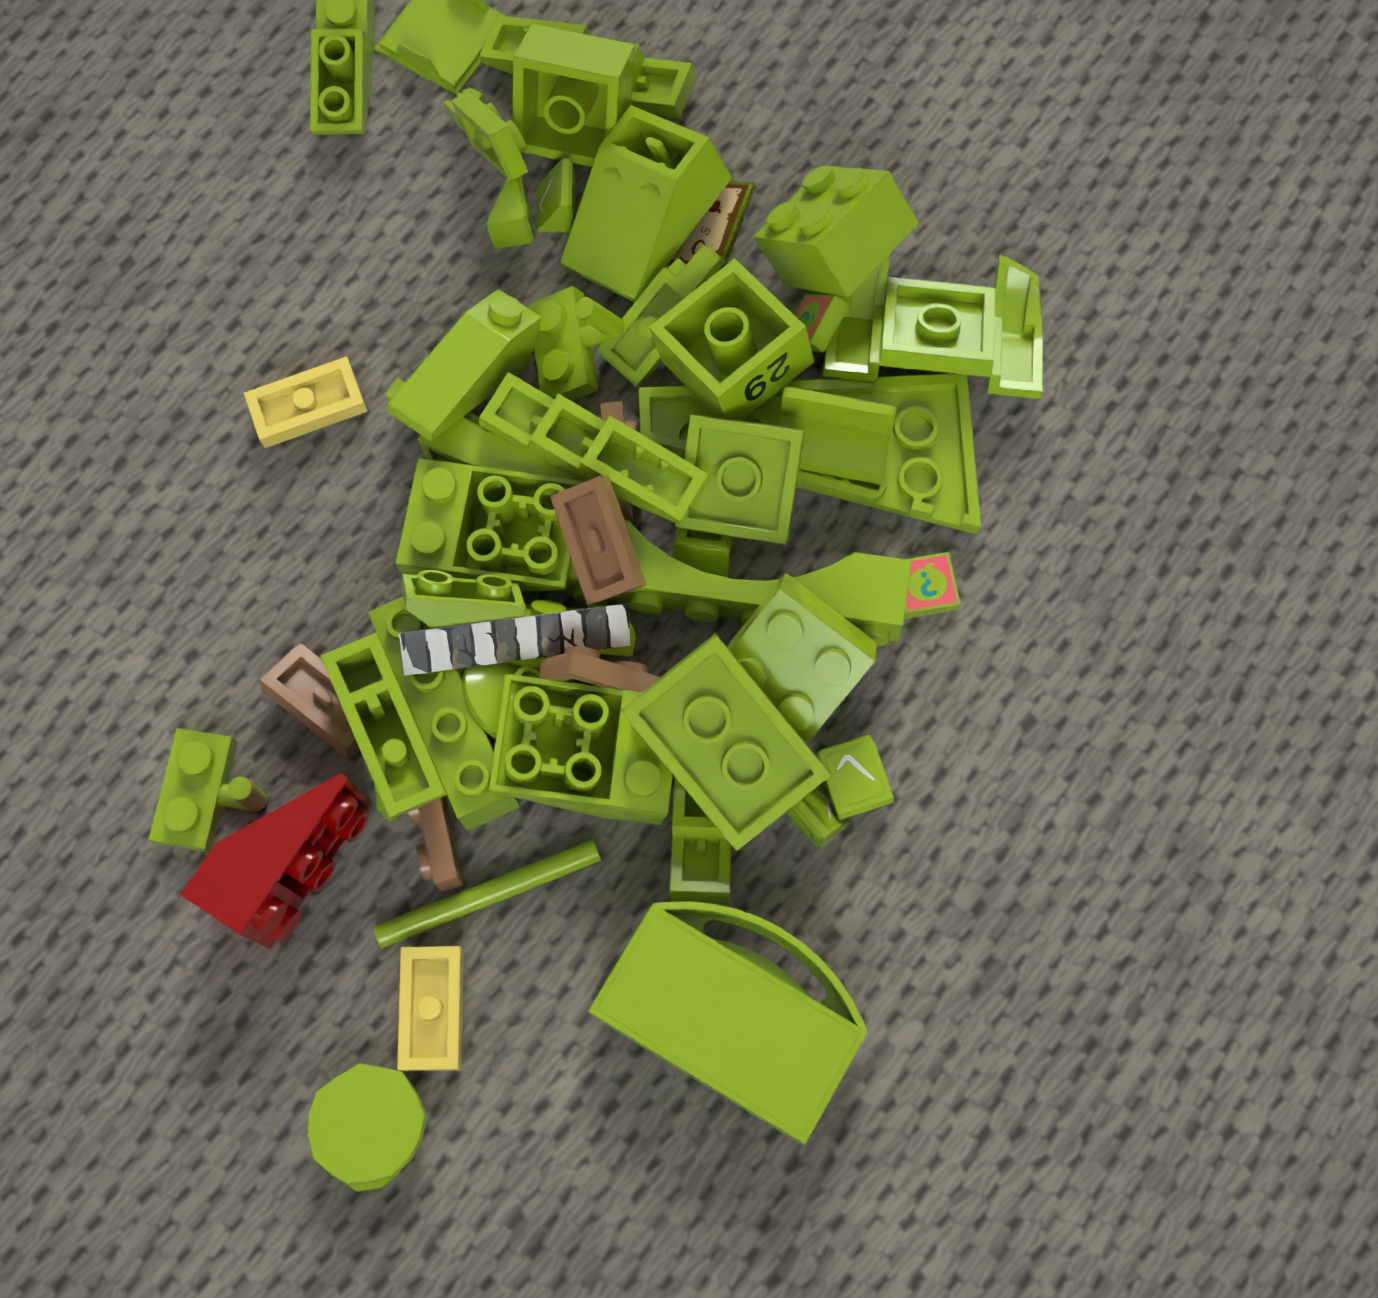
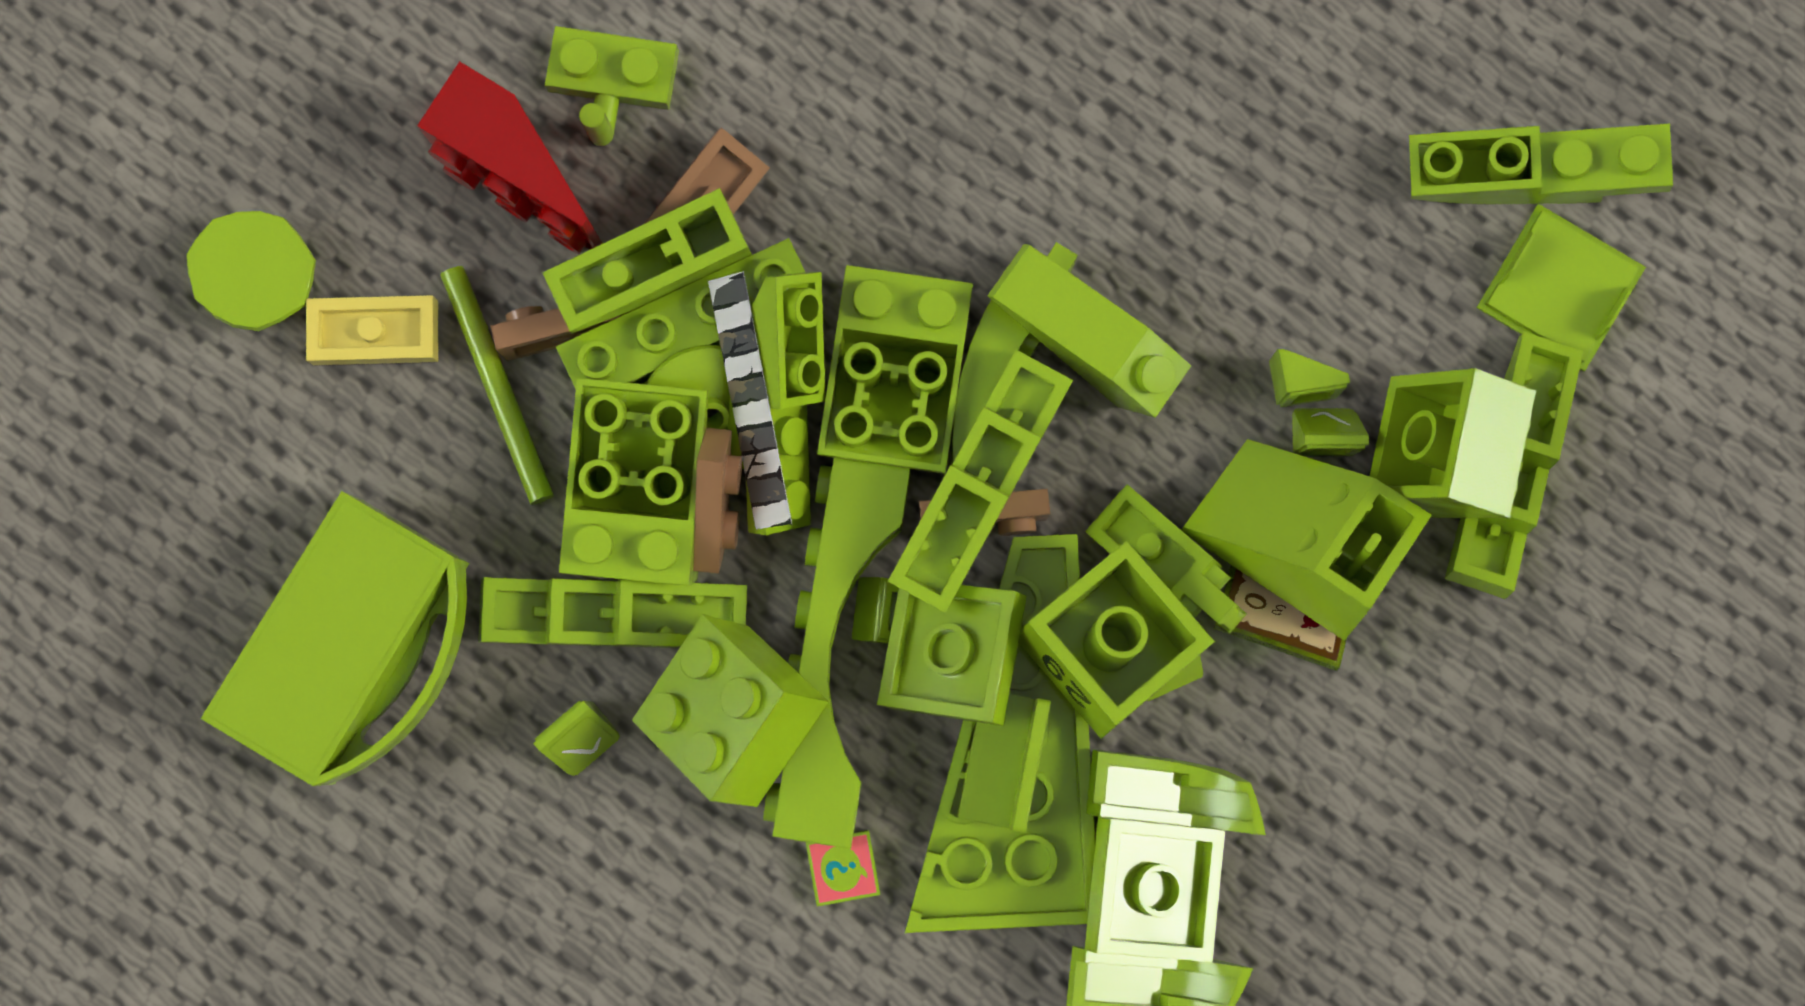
camera: 85 degrees right, 10 degrees up
(305, 402) = (1060, 154): light yellow plate -> none
(487, 132) = (1416, 340): lime hinge -> none
(565, 342) = (1134, 450): lime plate -> none
(598, 540) = (862, 488): medium nougat plate -> none
(725, 742) = (625, 633): lime plate -> none
(821, 317) = (1163, 741): lime tile -> none
(836, 229) = (1275, 768): lime brick -> none
(856, 777) = (611, 780): lime slope -> none

